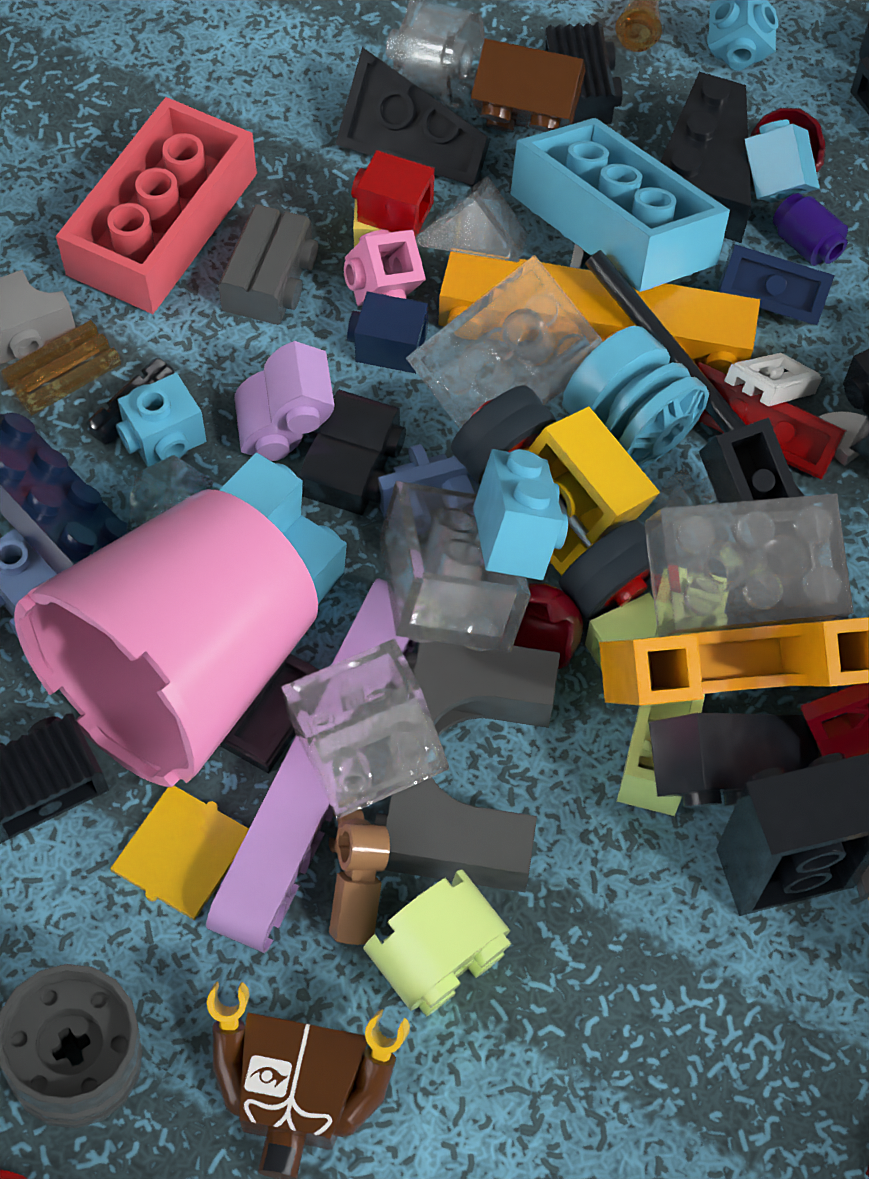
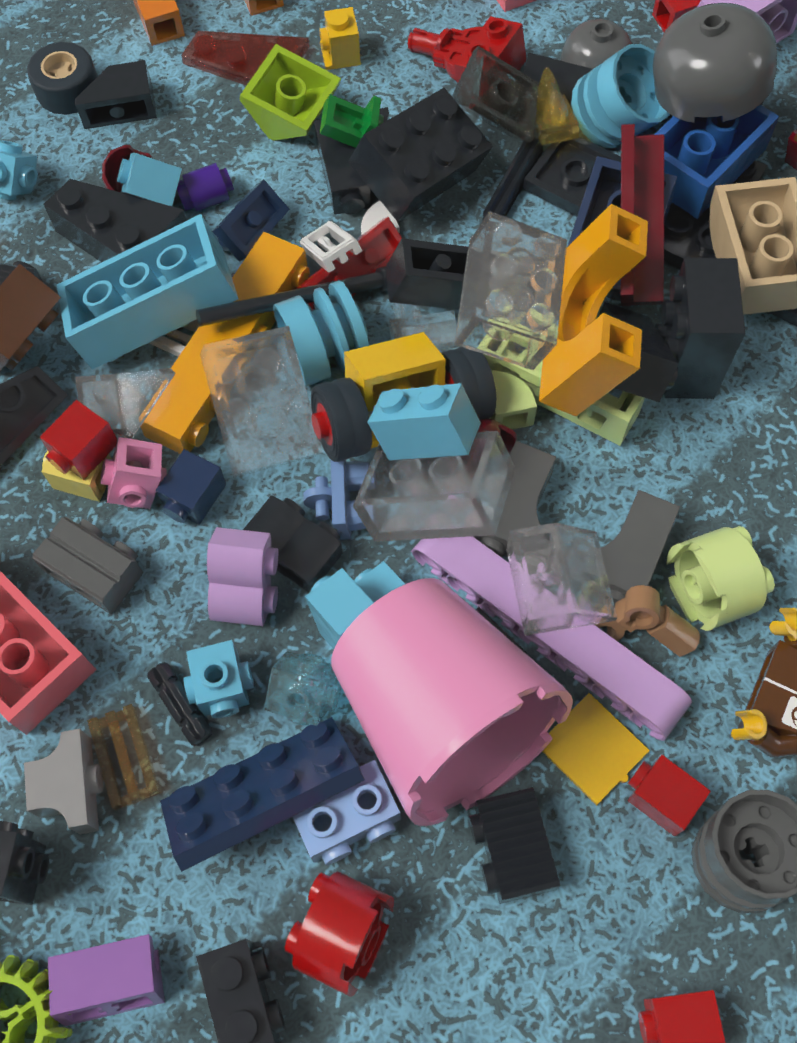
camera: 70 degrees left, 5 degrees up
(133, 939) = (667, 794): none -> red brick

